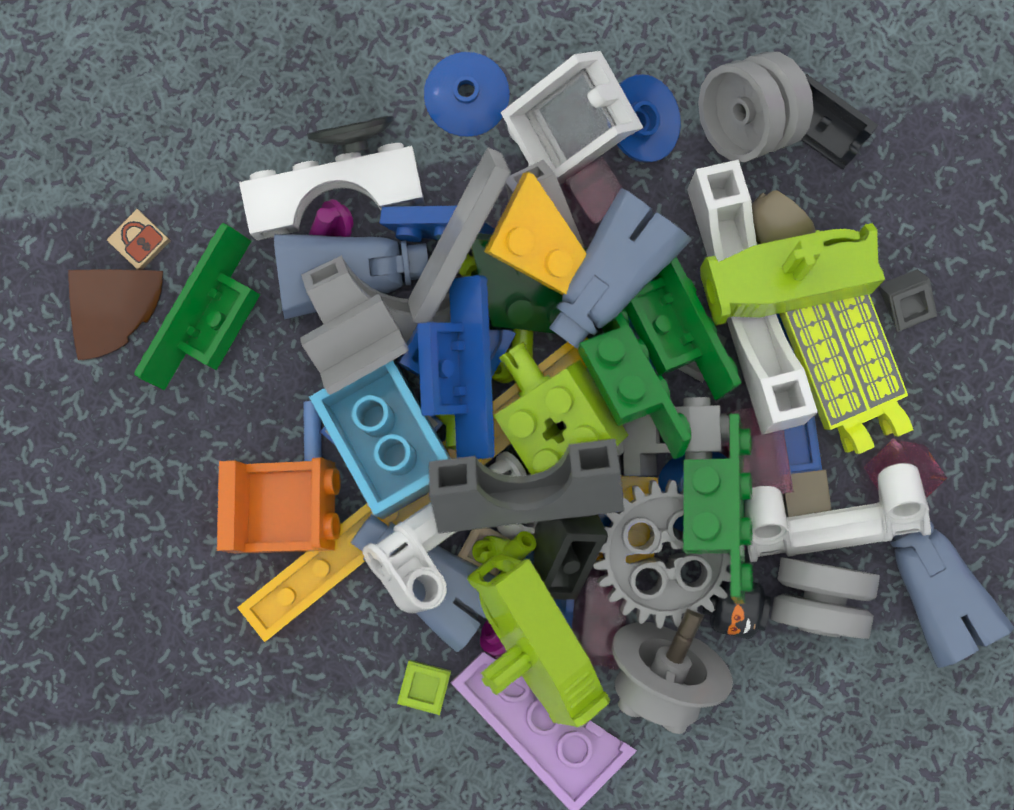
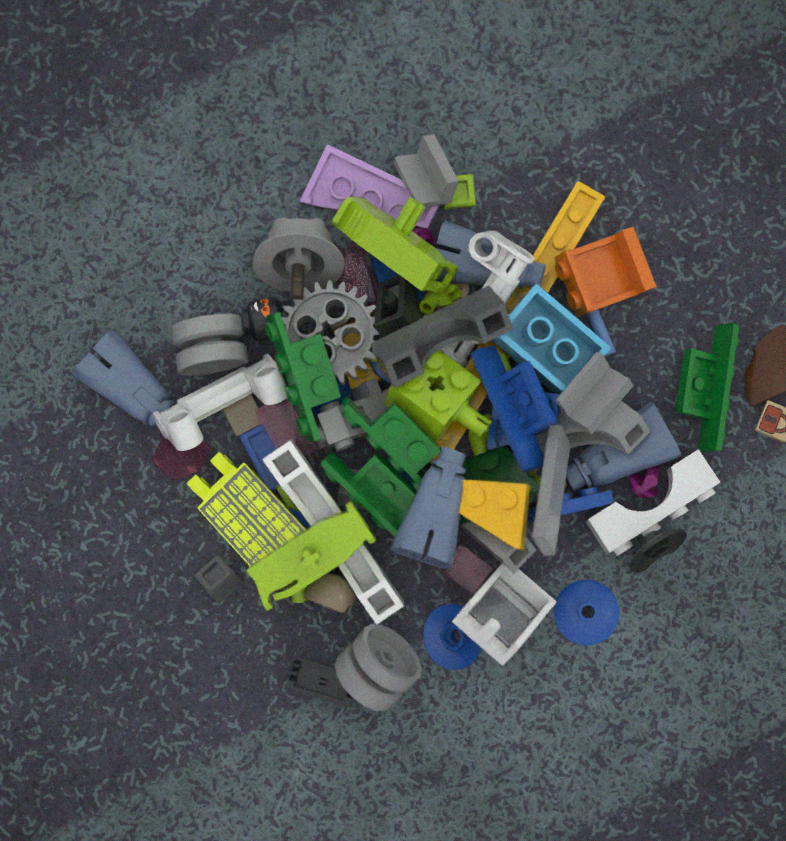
camera: 160 degrees right, 5 degrees down
(457, 723) = (428, 173): none -> light grey panel

